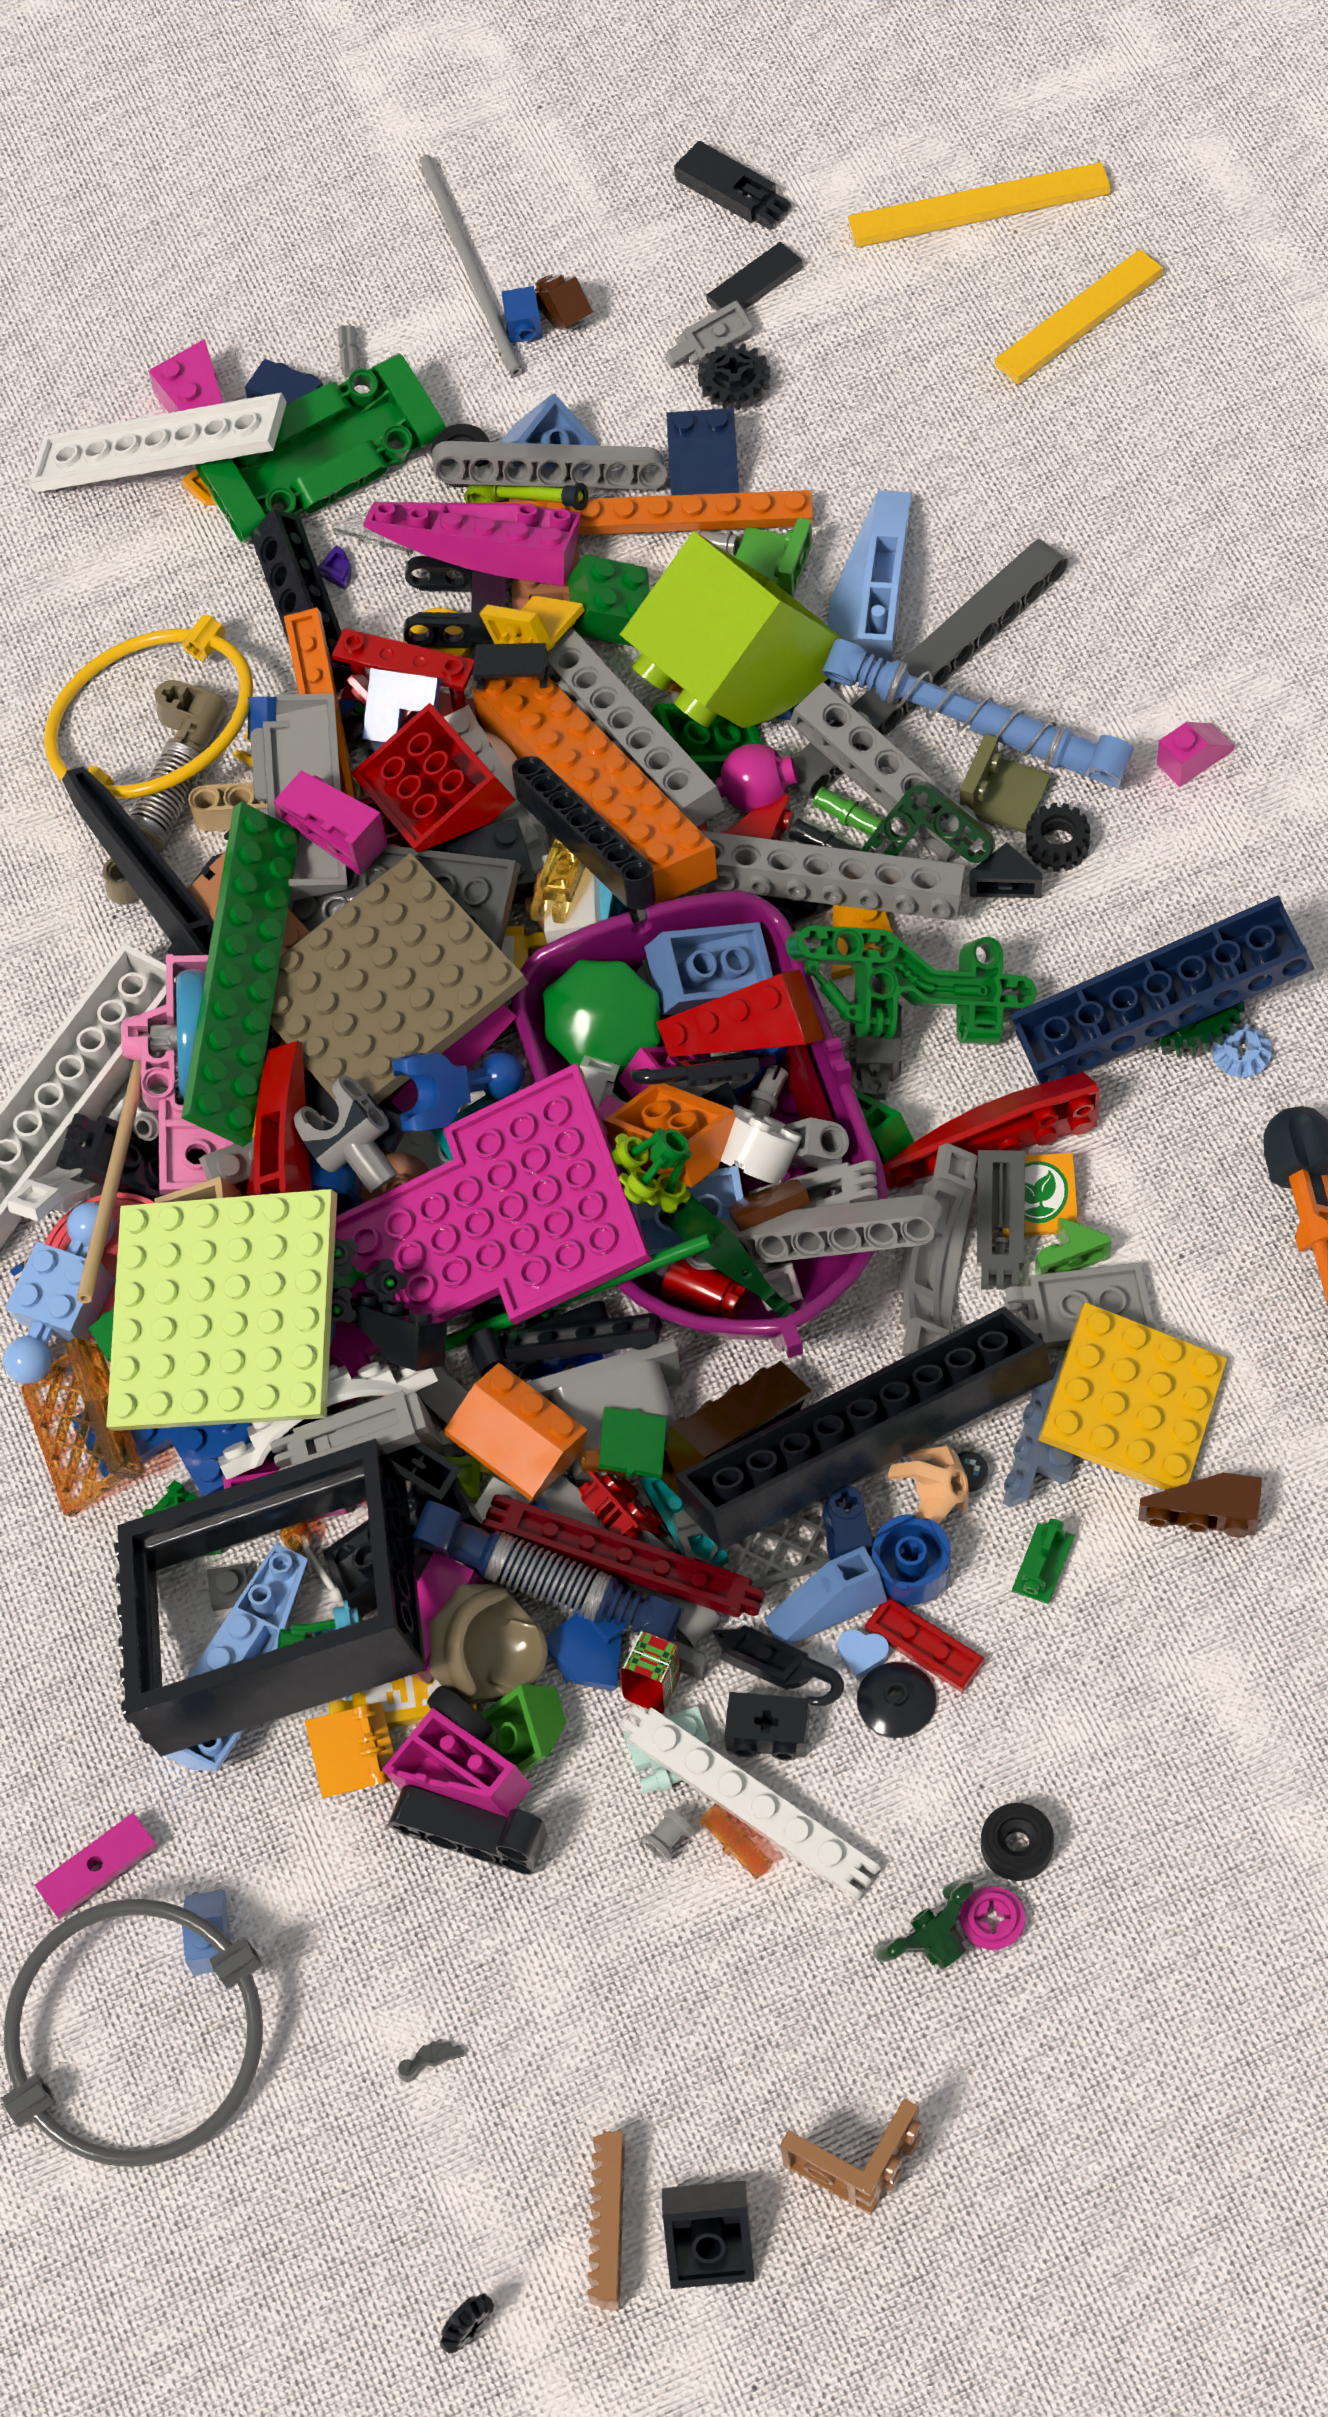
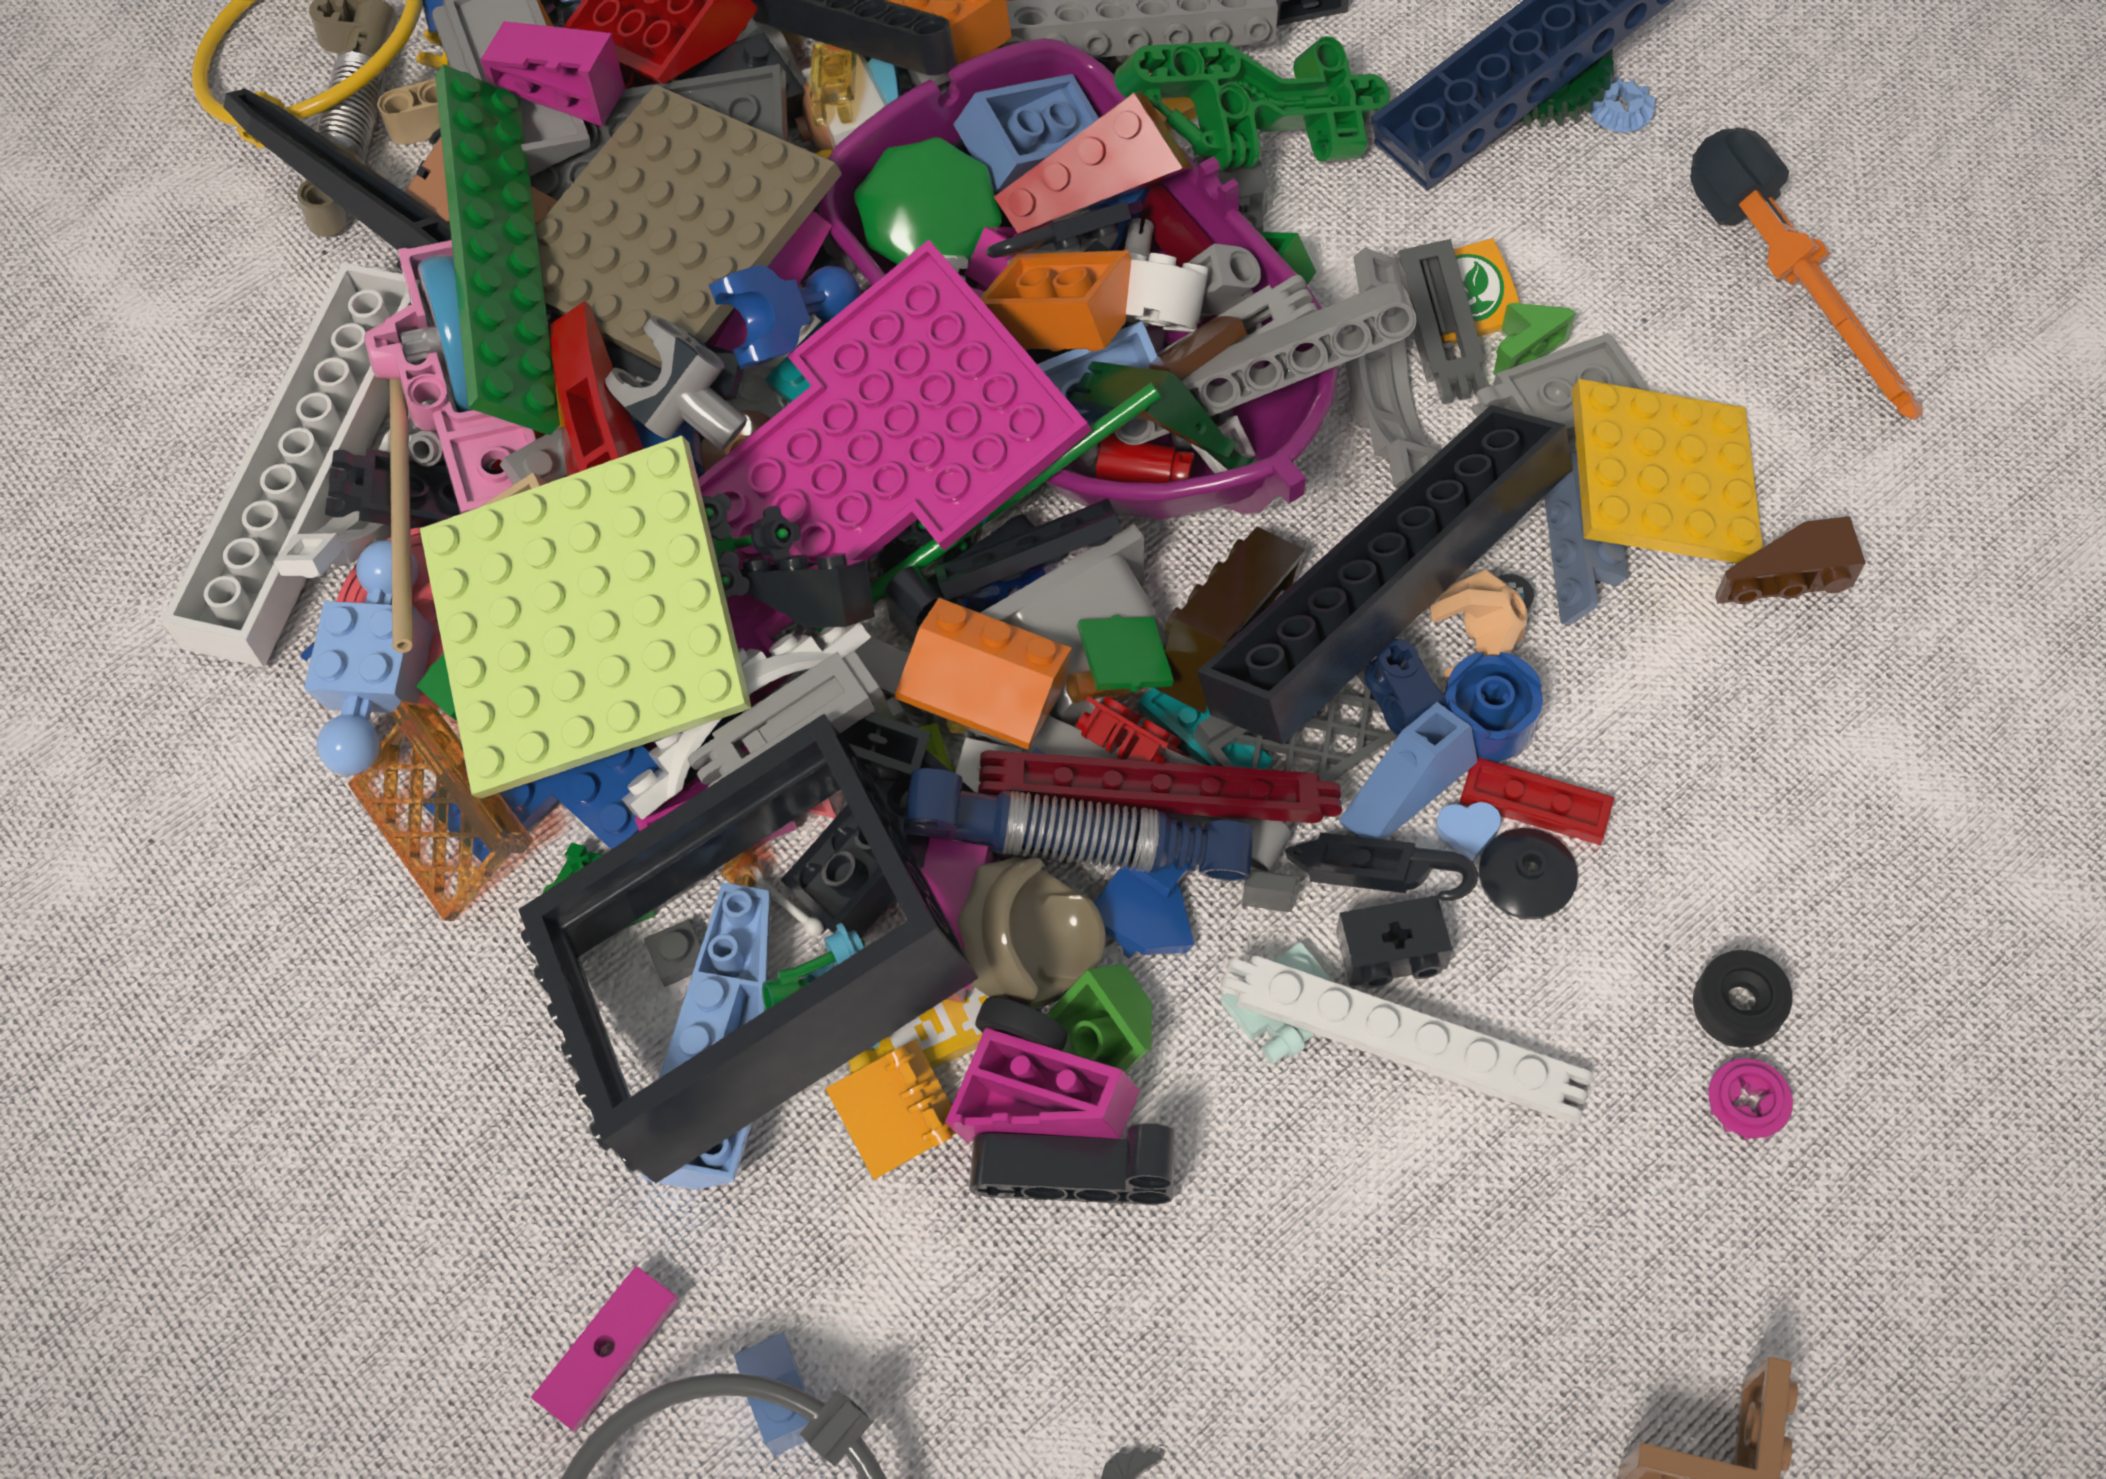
camera: 20 degrees left, 0 degrees up
(645, 1674) = (1237, 914): piece -> none
(667, 1151) = (1074, 302): plant -> none
(667, 1835) = (1322, 1106): light grey bush -> none
(736, 1841) = (1408, 1091): clear orange pin -> none
(932, 1931) = (1693, 1132): dark green piece -> none
(1007, 1123) = (1424, 214): red wedge -> none
(1043, 1561) = (1635, 672): green hinge -> none

